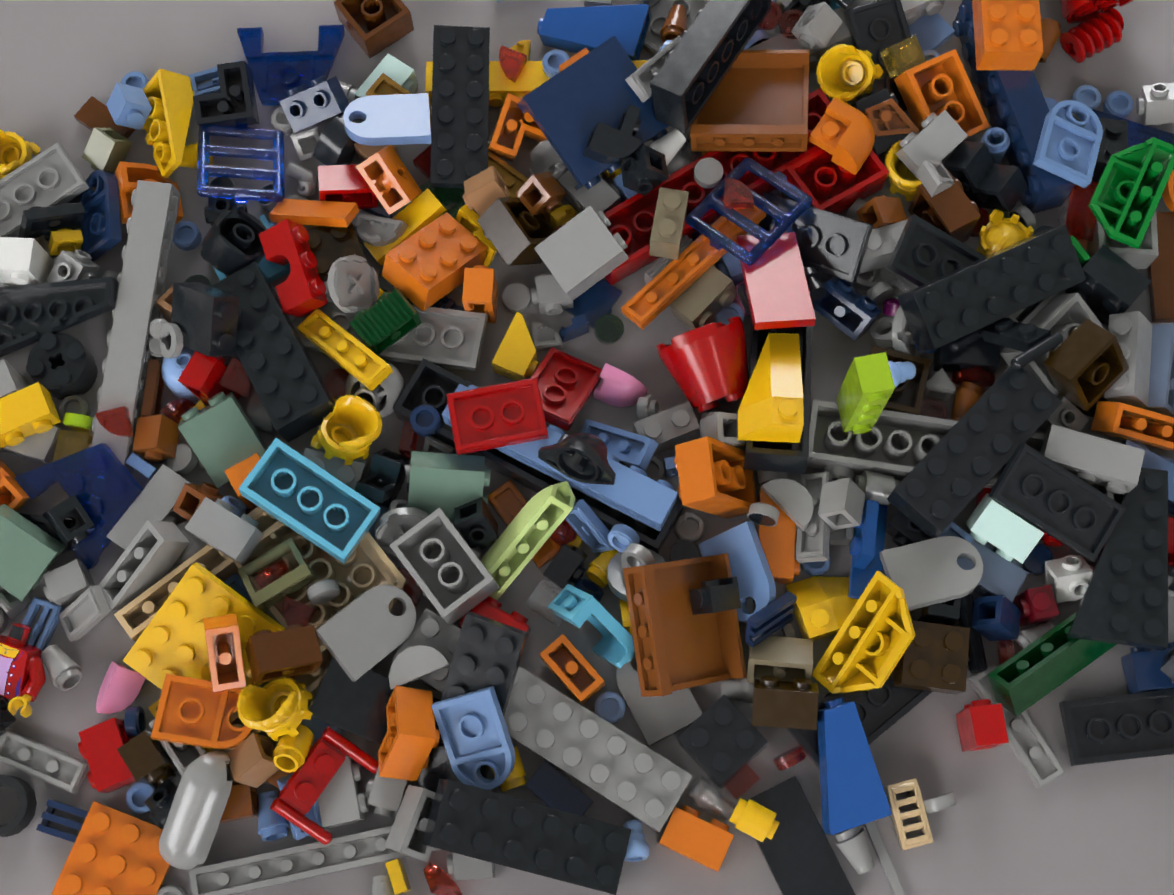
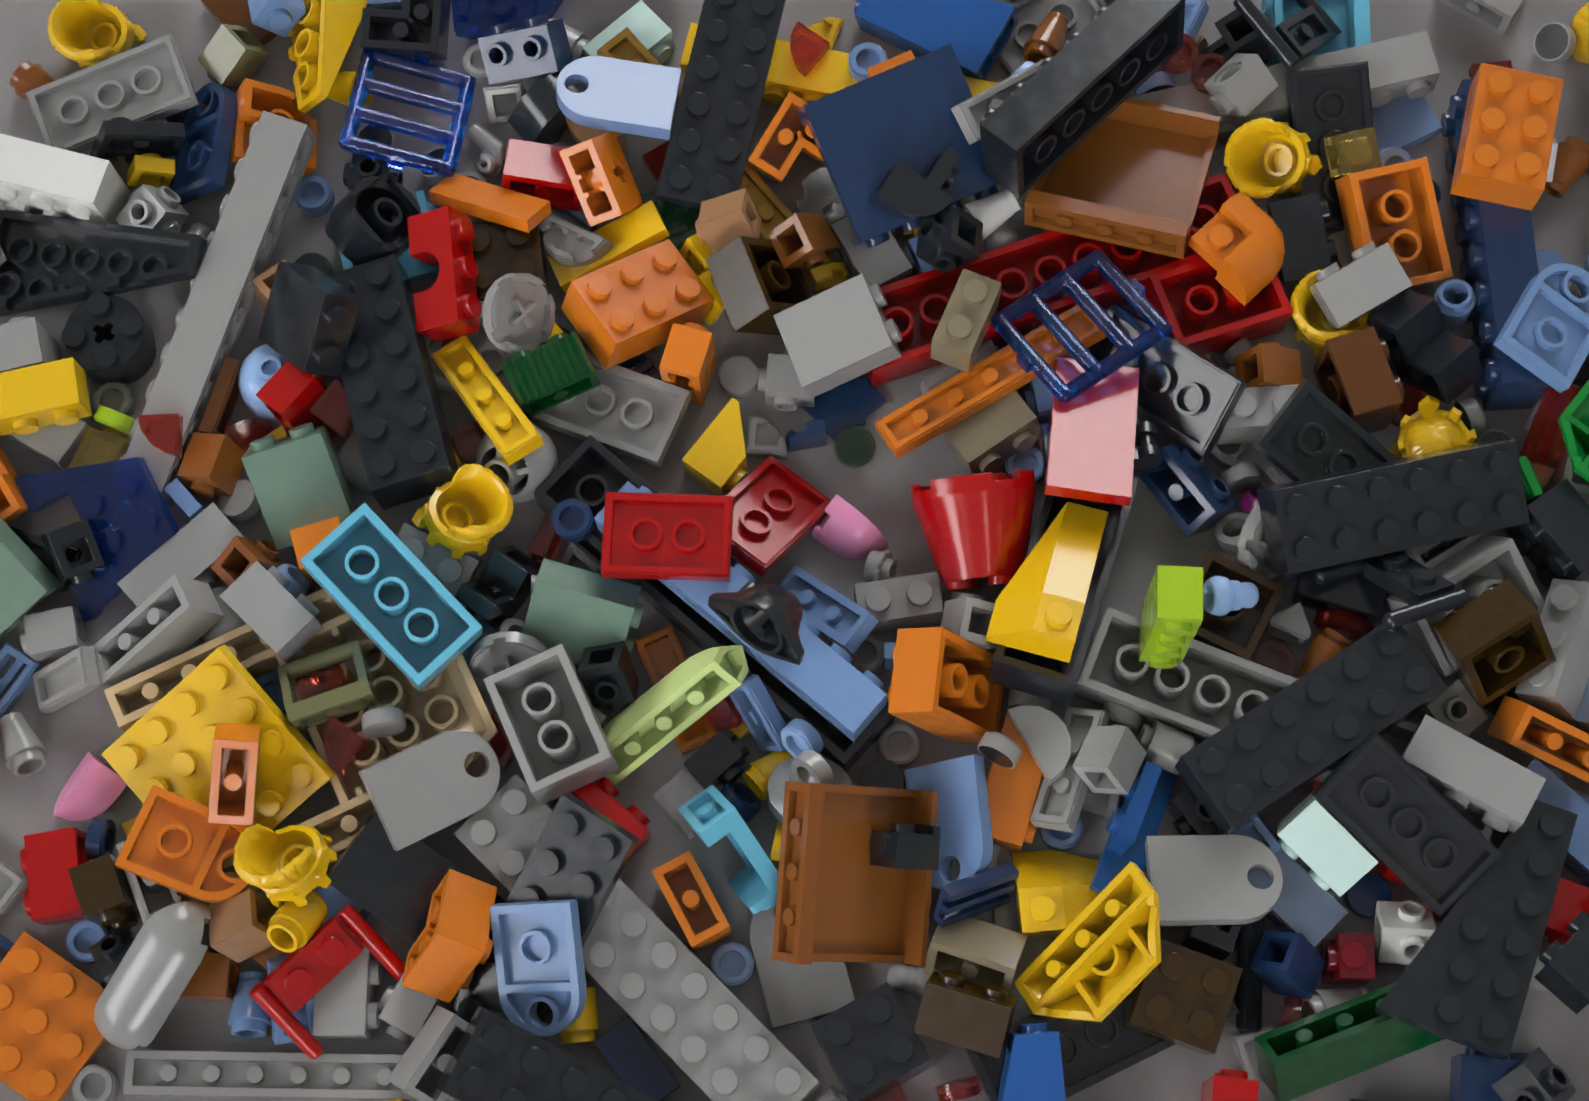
camera: 15 degrees right, 0 degrees up
(159, 345) = (242, 339): light grey piece -> none
(283, 653) = (311, 792): reddish brown brick -> none
(415, 663) = (483, 846): light grey tile -> none
(708, 172) = (1039, 260): light grey tile -> none
(737, 195) = (1068, 301): clear red tile -> none
(889, 119) = (1310, 238): dark orange piece -> none
(934, 177) = (1351, 333): light grey slope -> none

